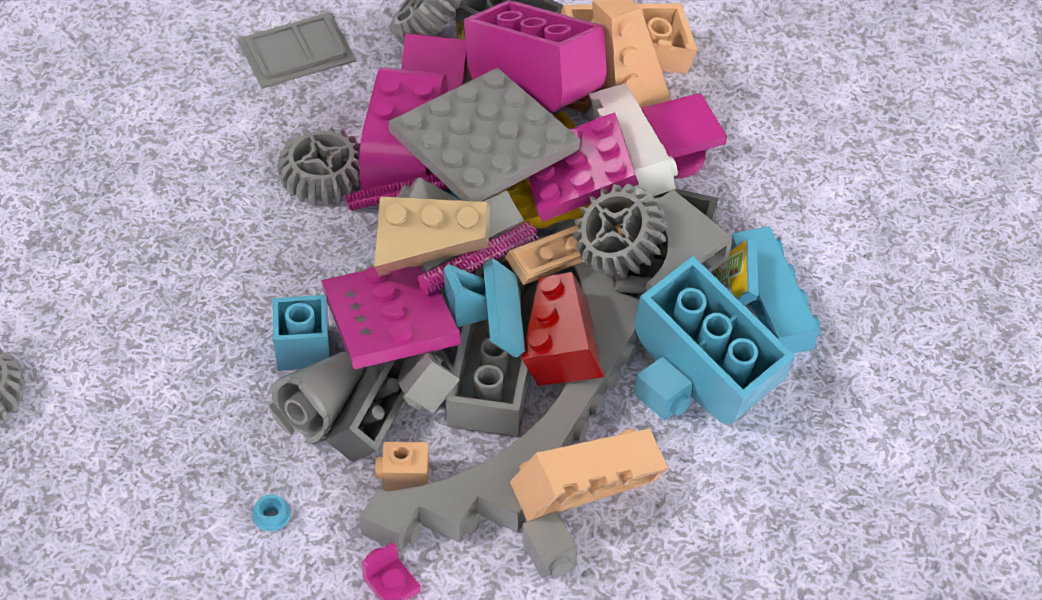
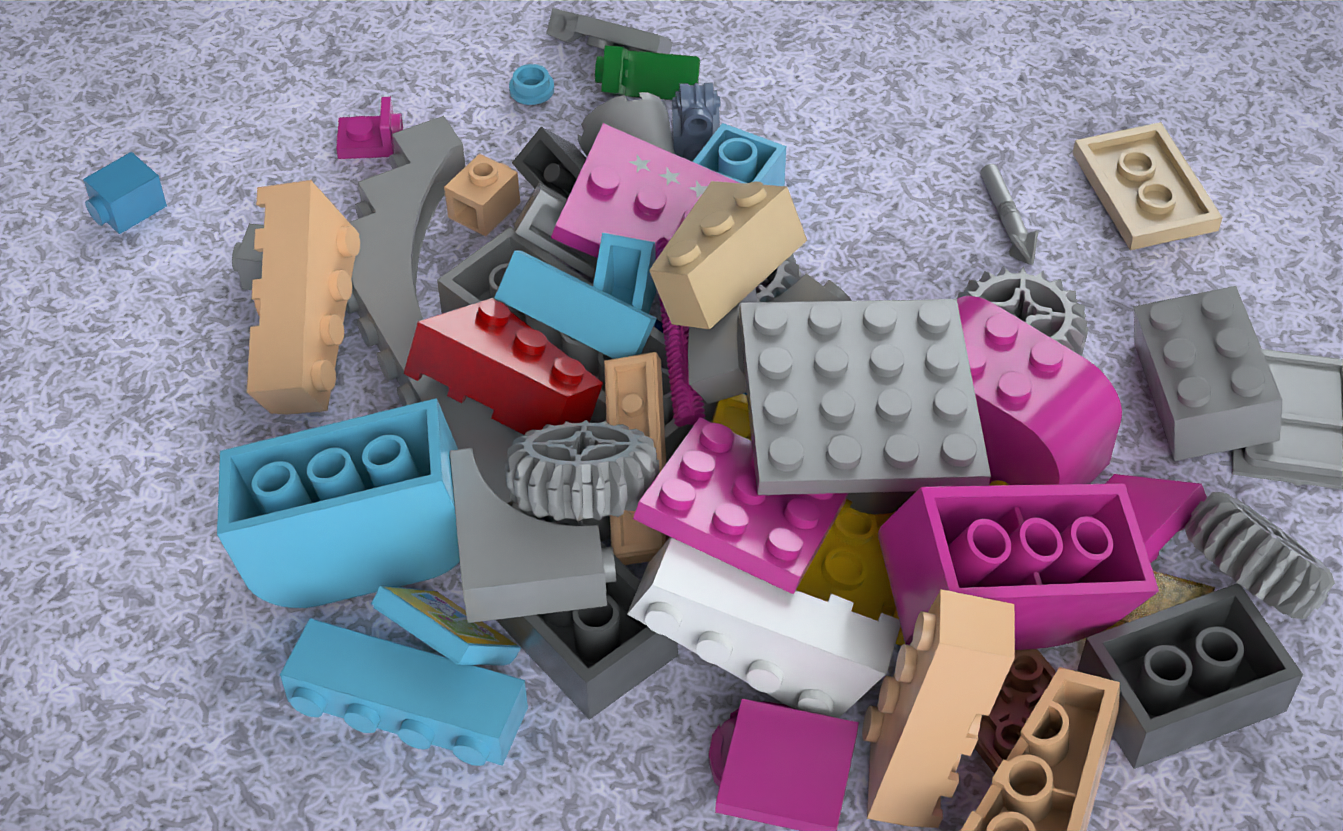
camera: 125 degrees right, 0 degrees up
(154, 159) = (1146, 186): none -> tan plate
(187, 491) = (571, 26): none -> light grey hinge
(225, 453) = (639, 72): none -> green bracket
(246, 195) = (1022, 242): none -> light grey piece
(265, 368) = (694, 118): none -> sand blue brick
(307, 73) = (1207, 373): none -> light grey brick

